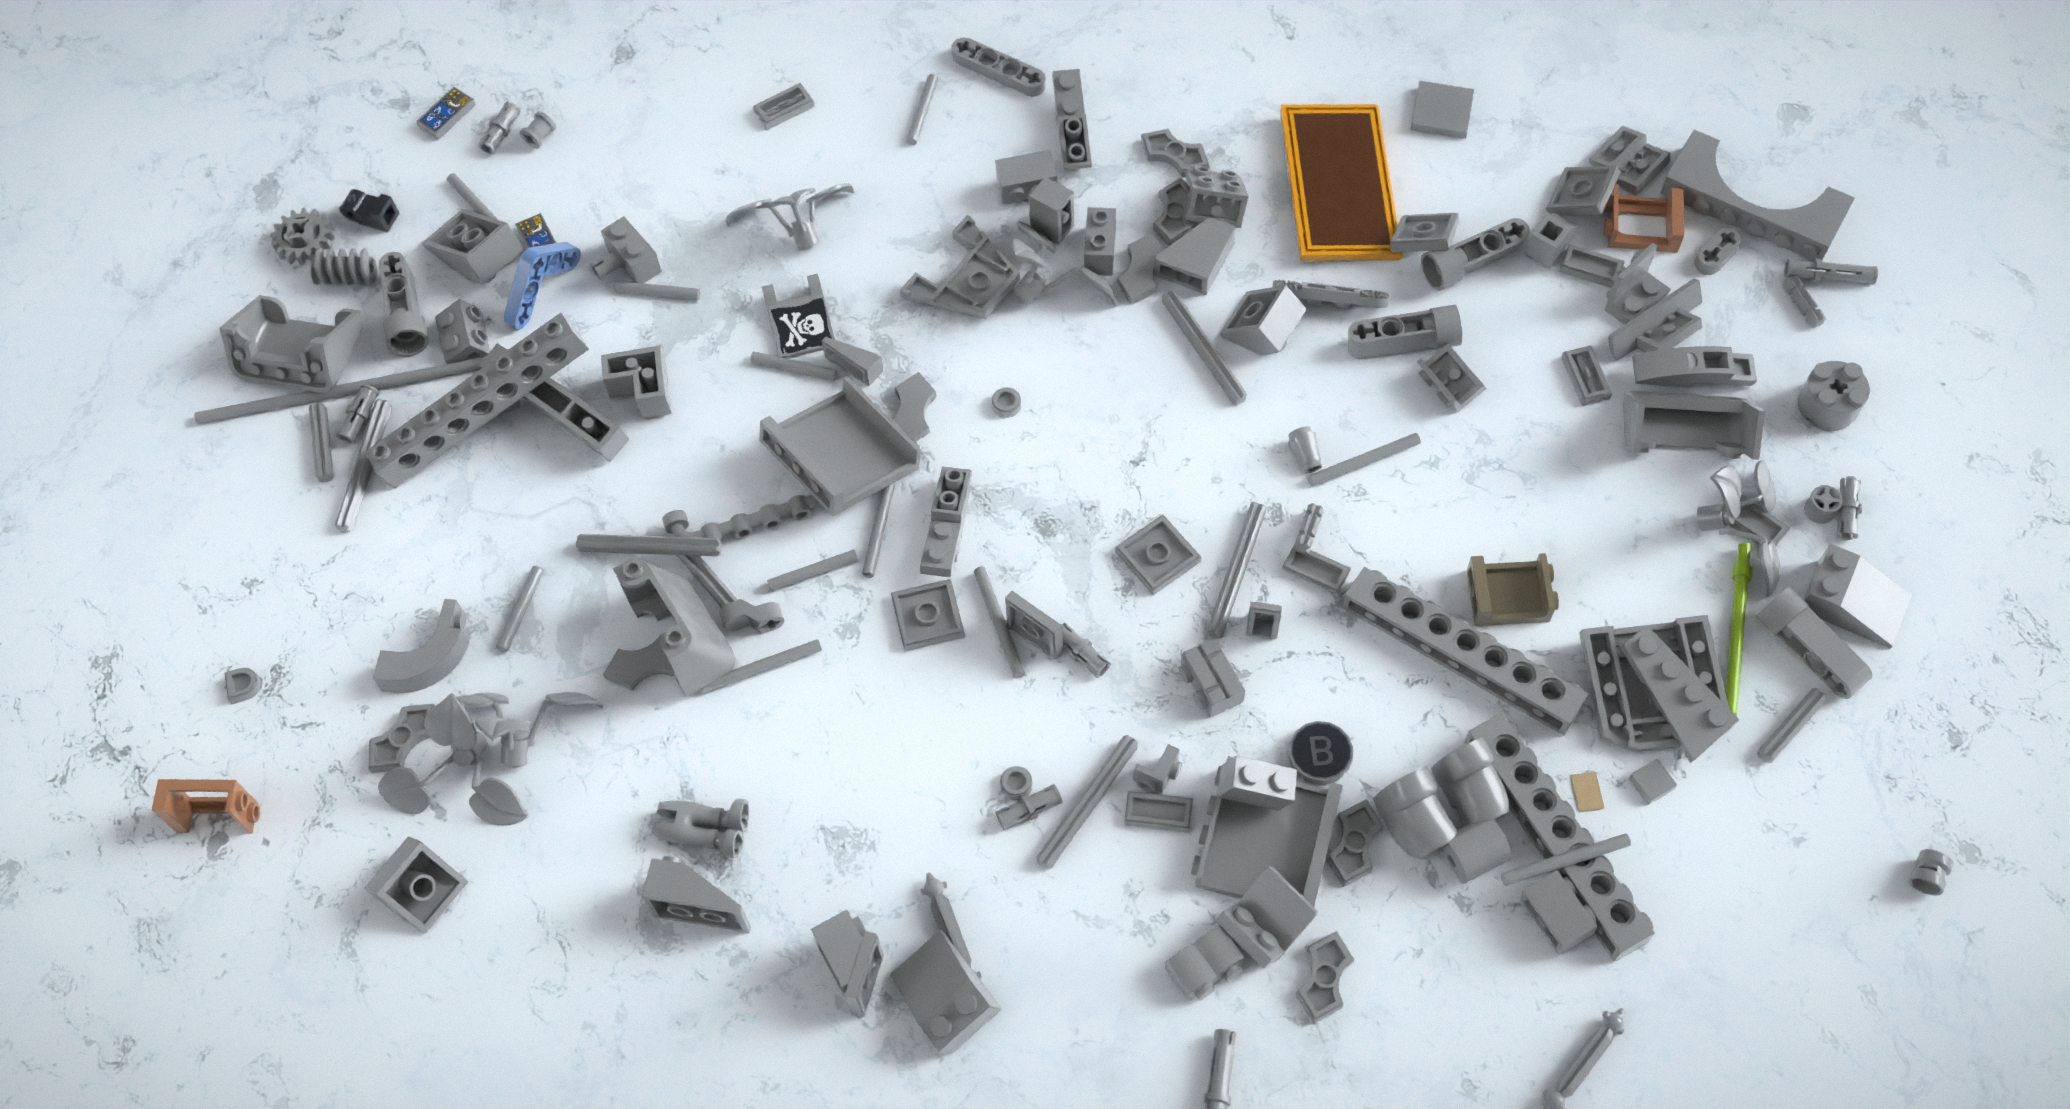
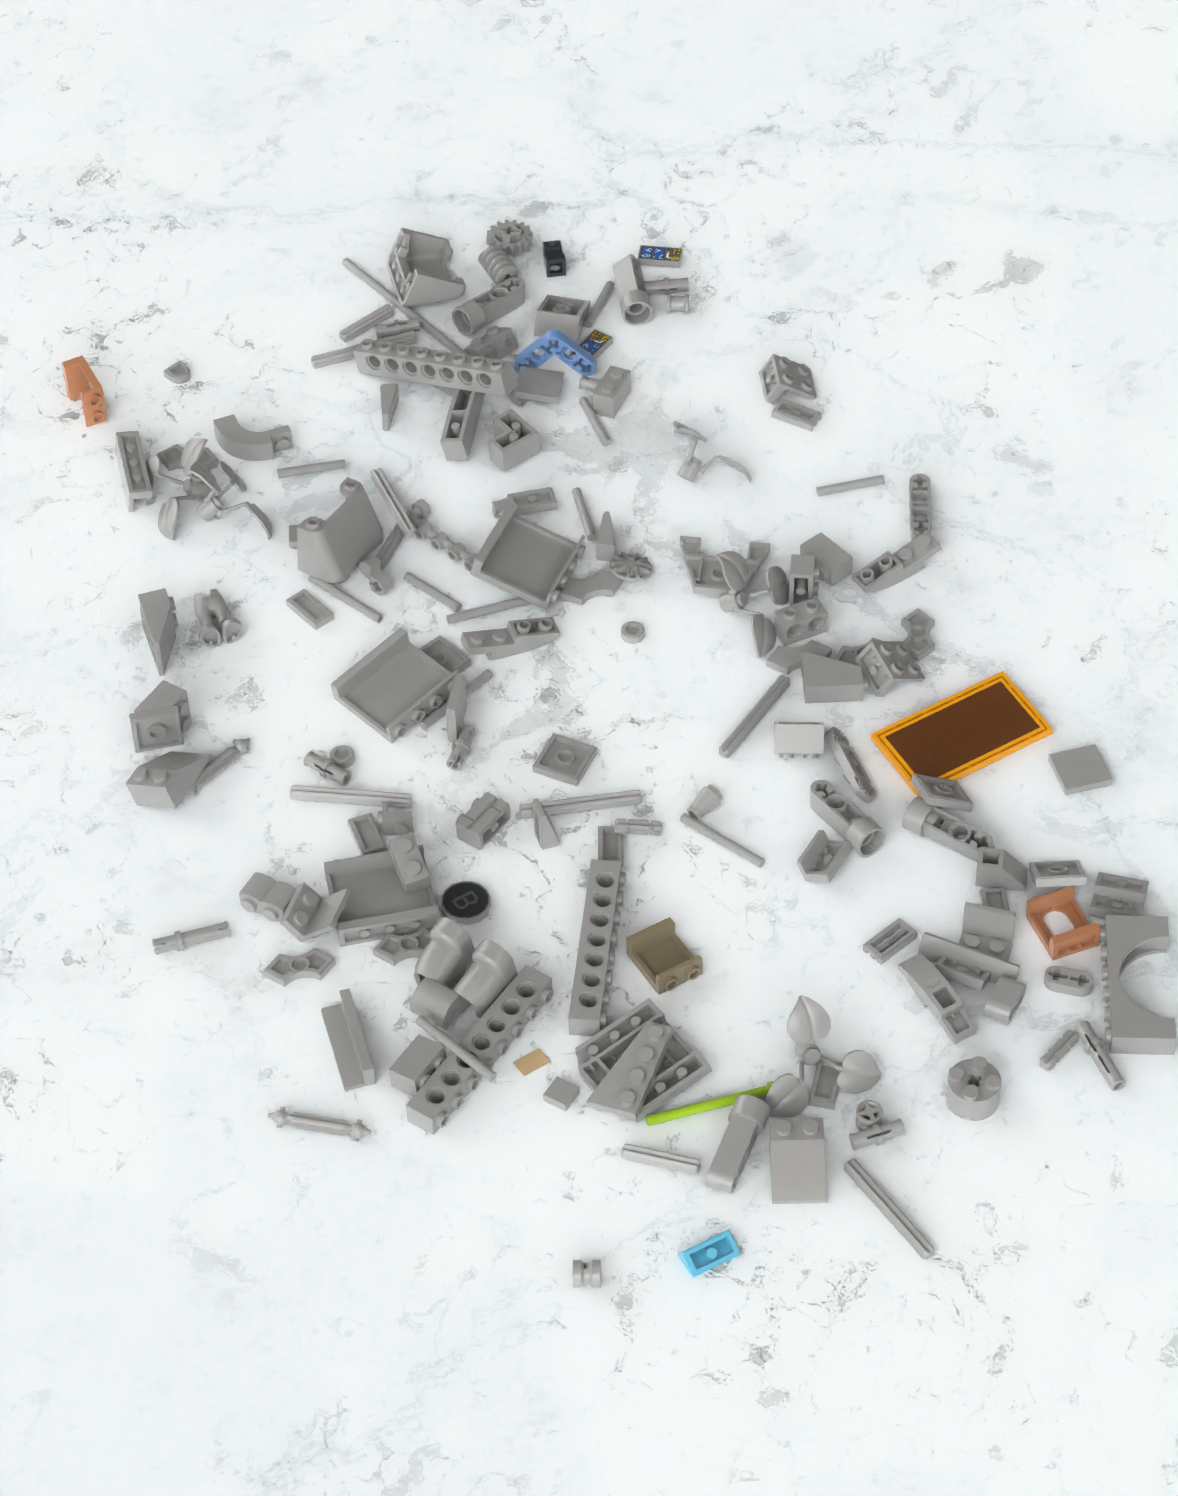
camera: 60 degrees right, 15 degrees down
(382, 809) = (132, 467): none -> light grey panel
(416, 884) = (94, 508): light grey slope -> none
(478, 479) = (389, 402): none -> light grey slope
(511, 166) = (632, 291): none -> light grey beam
(574, 306) = (539, 385): none -> light grey tile
(728, 90) = (782, 374): none -> light grey bracket
(741, 412) = (527, 501): none -> light grey hinge
(753, 712) = (310, 609): none -> light grey tile
(799, 322) = (623, 499): flag -> none
(909, 358) = (630, 565): none -> light grey wheel
(953, 674) = (393, 686): none -> light grey panel
(1473, 973) = (348, 1043): none -> light grey panel
(1692, 421) = (881, 999): light grey windscreen -> none
(1722, 314) = (1004, 999): none -> light grey beam
(1937, 738) = (709, 1253): none -> medium azure slope
(1949, 544) = (889, 1209): none -> light grey axle

